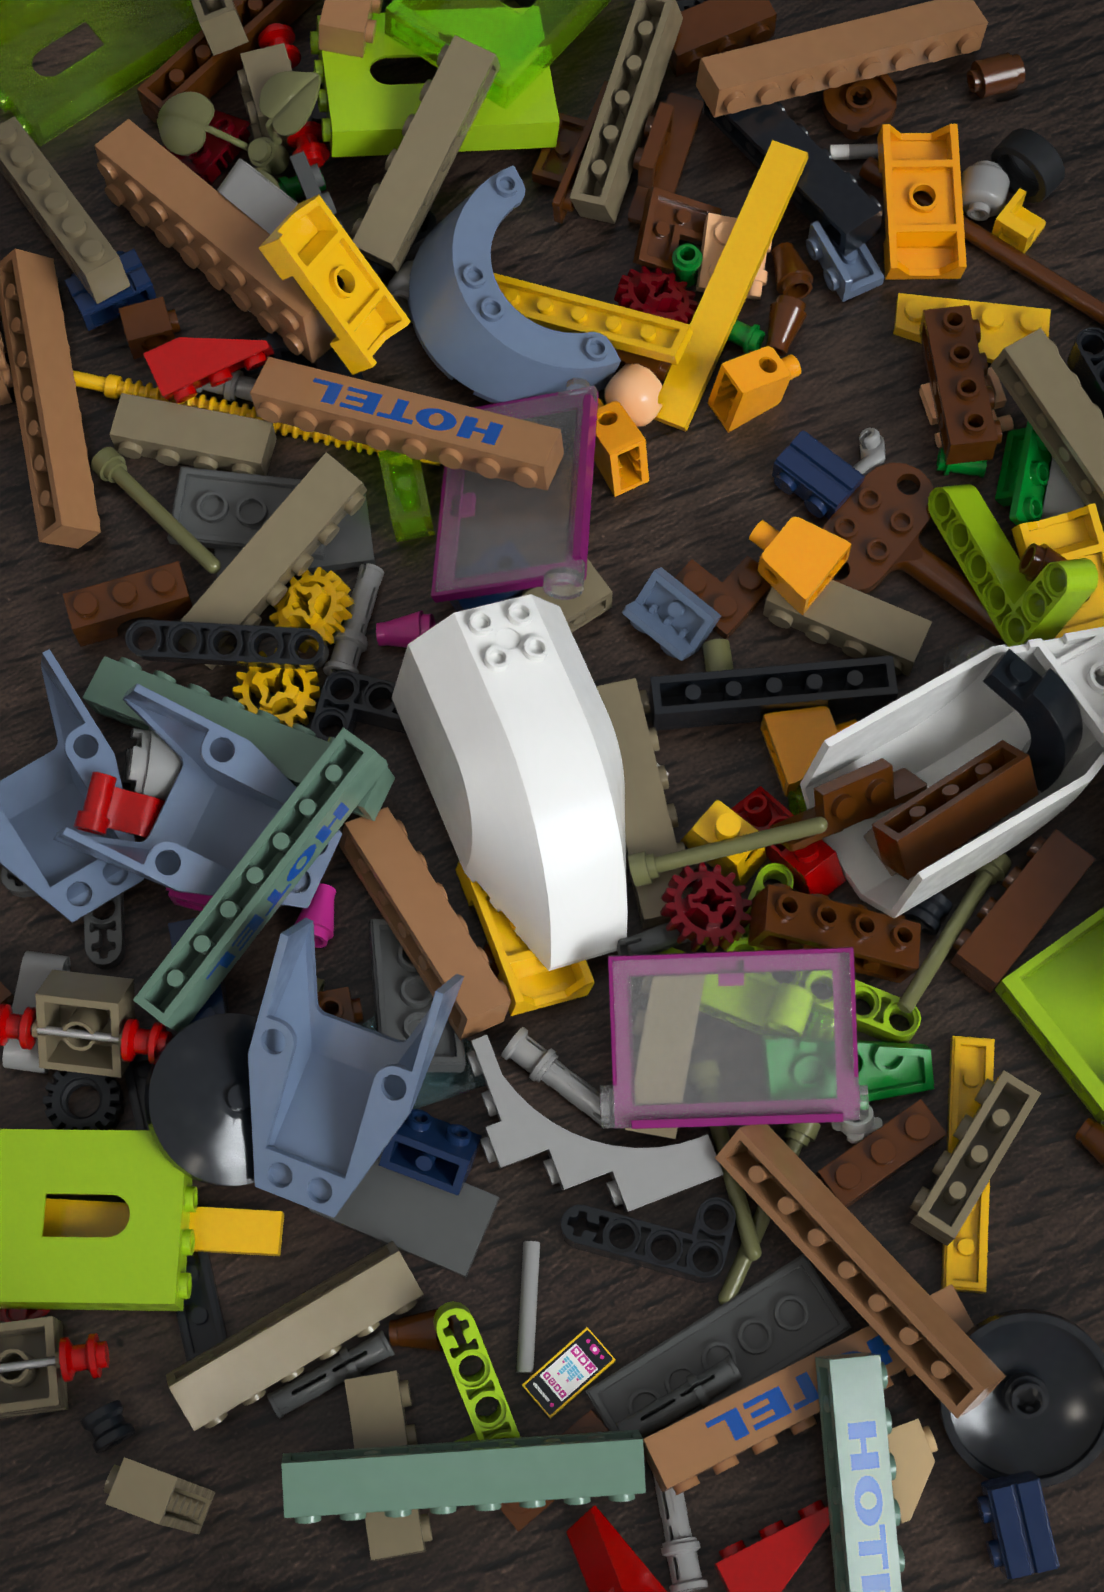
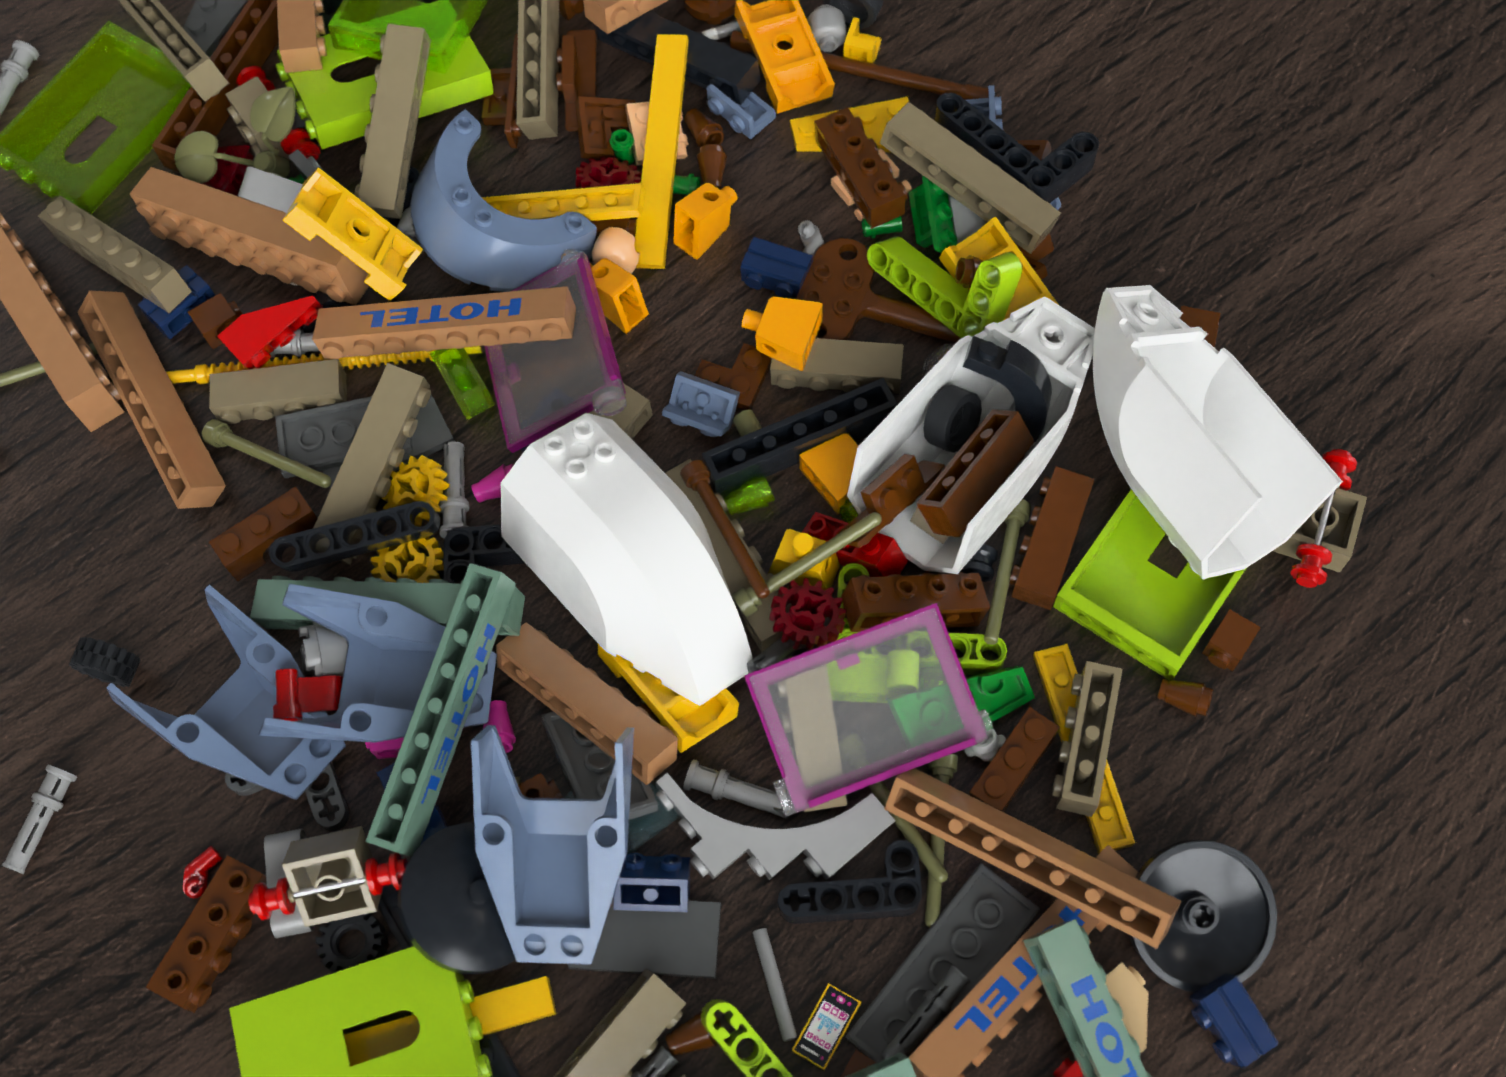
camera: 15 degrees left, 5 degrees down
(635, 703) = (697, 477): none -> reddish brown piece
(691, 743) = (750, 496): none -> clear neon green cone
(955, 732) = (952, 418): none -> black tyre

